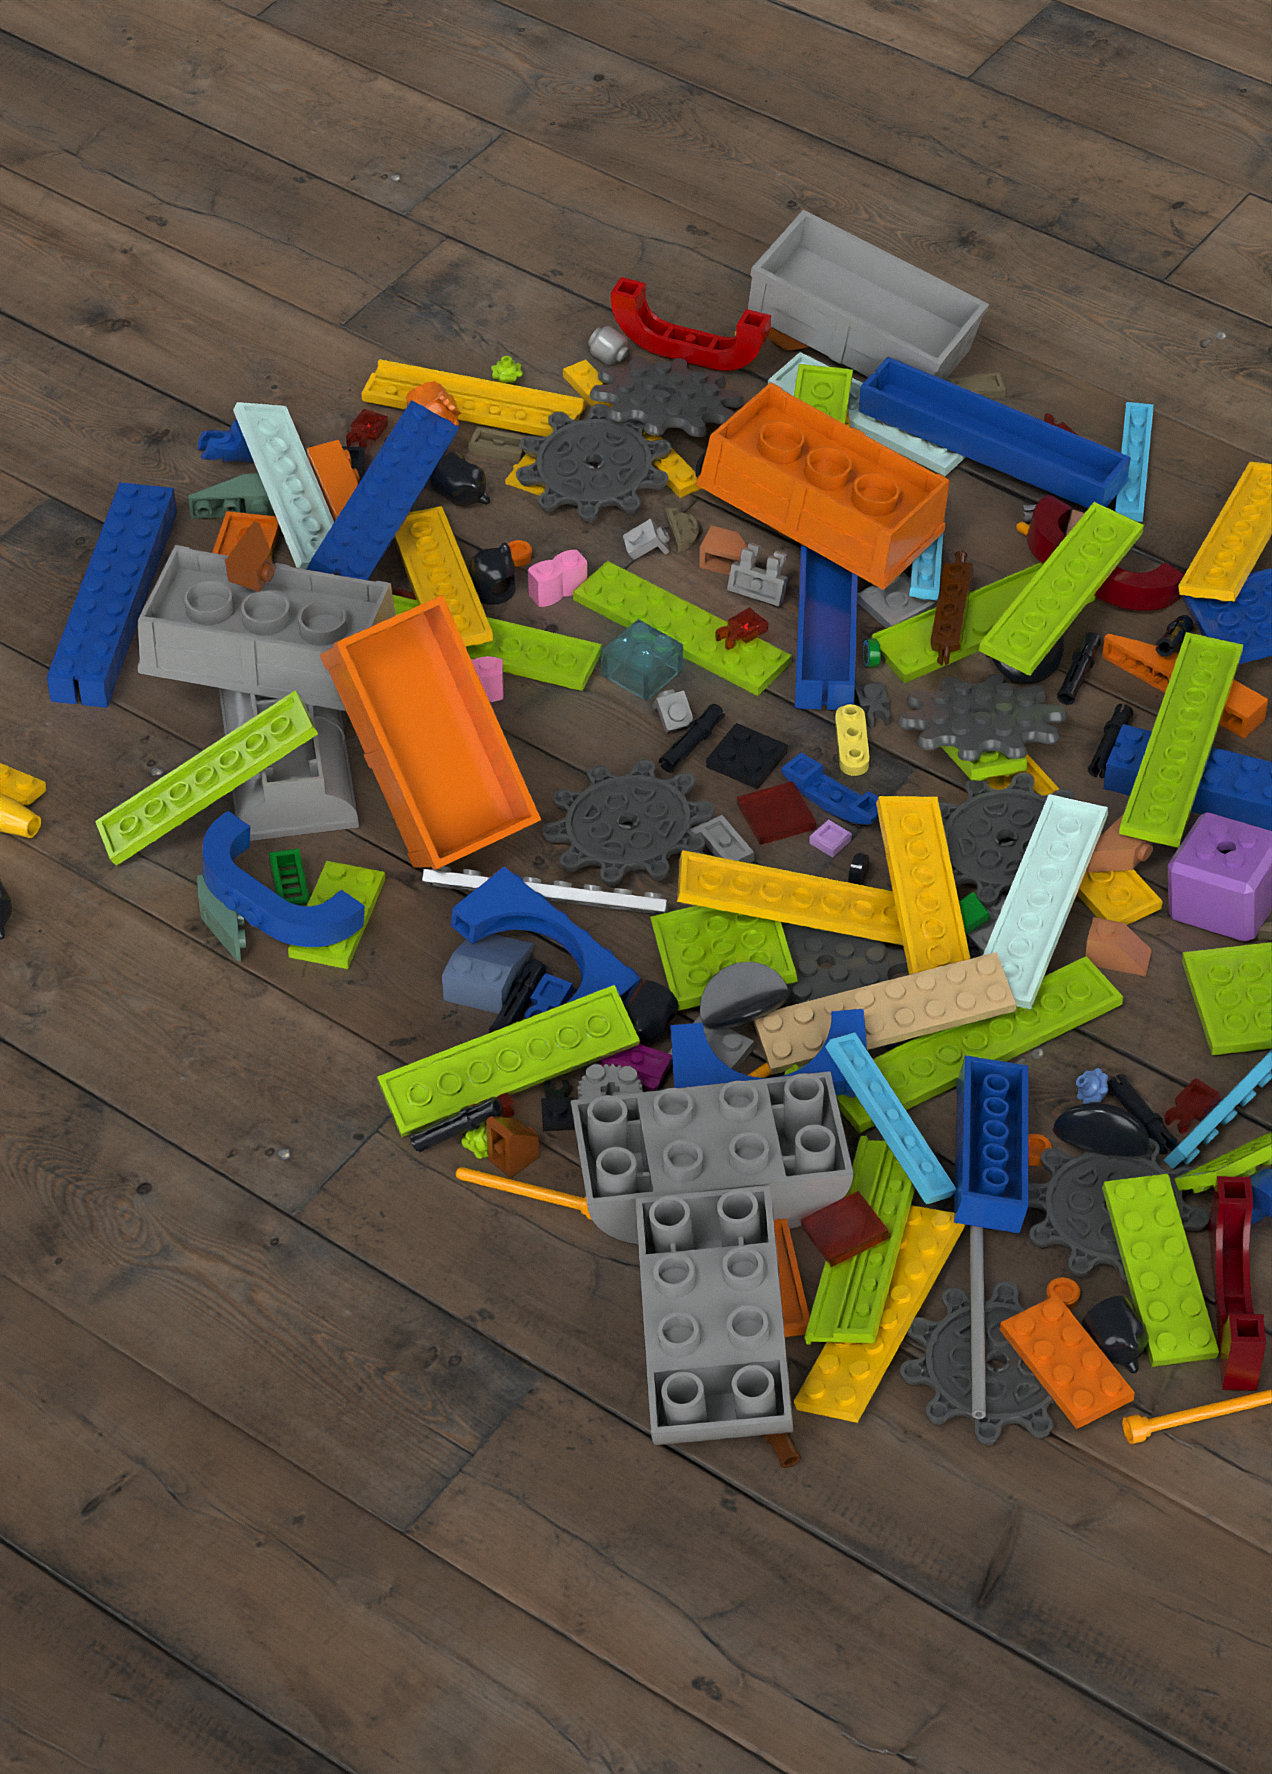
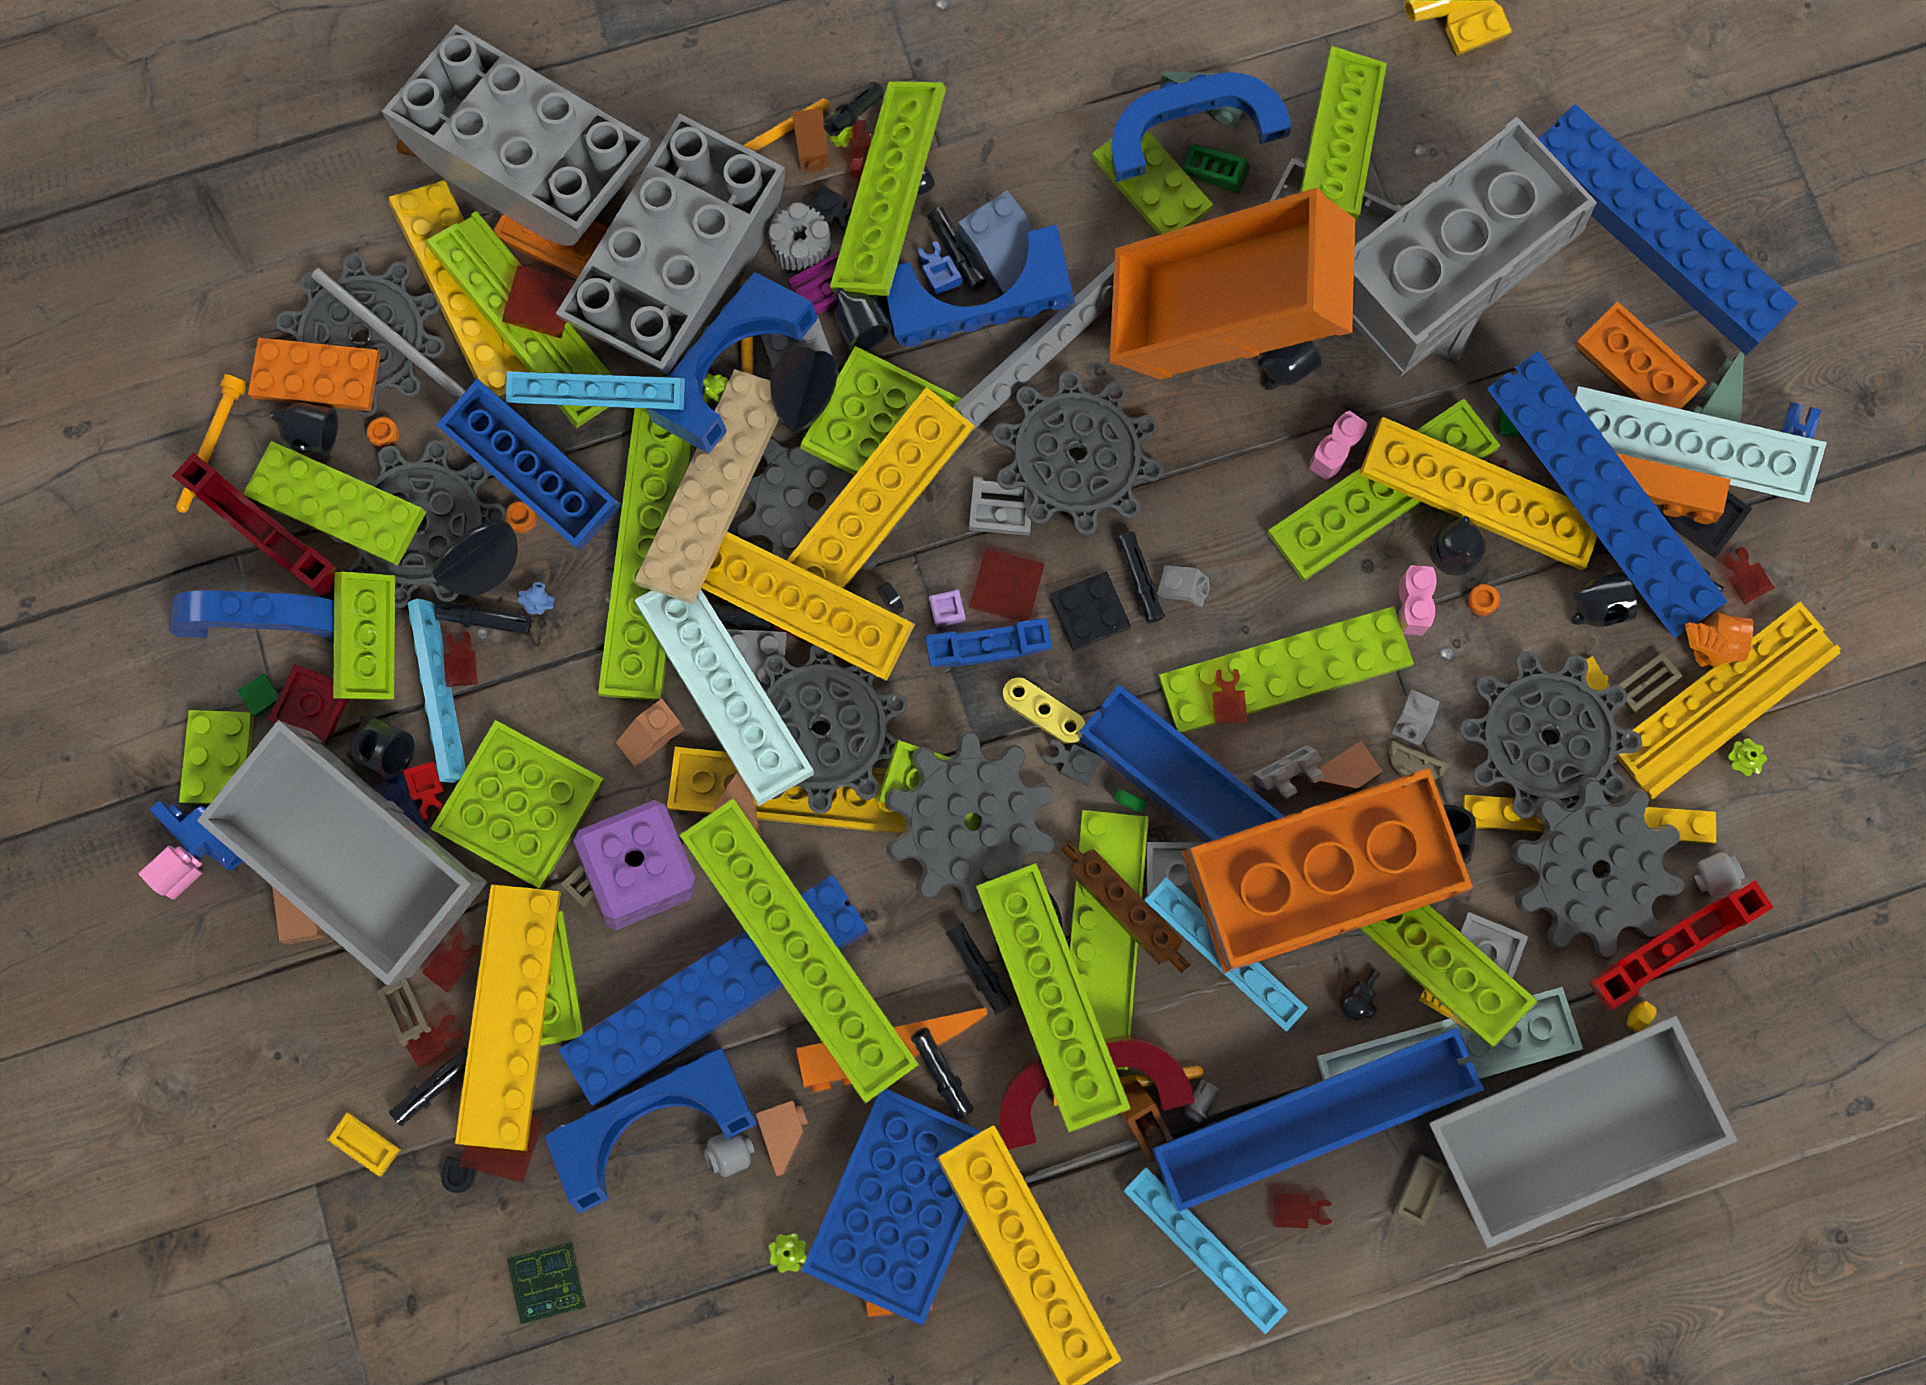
camera: 125 degrees right, 30 degrees up
(251, 560) = (1520, 240): dark orange slope -> none
(642, 659) = (1260, 598): clear light blue brick -> none
(972, 912) = (766, 637): green tile -> none
(1109, 738) = (881, 933): black pin -> none

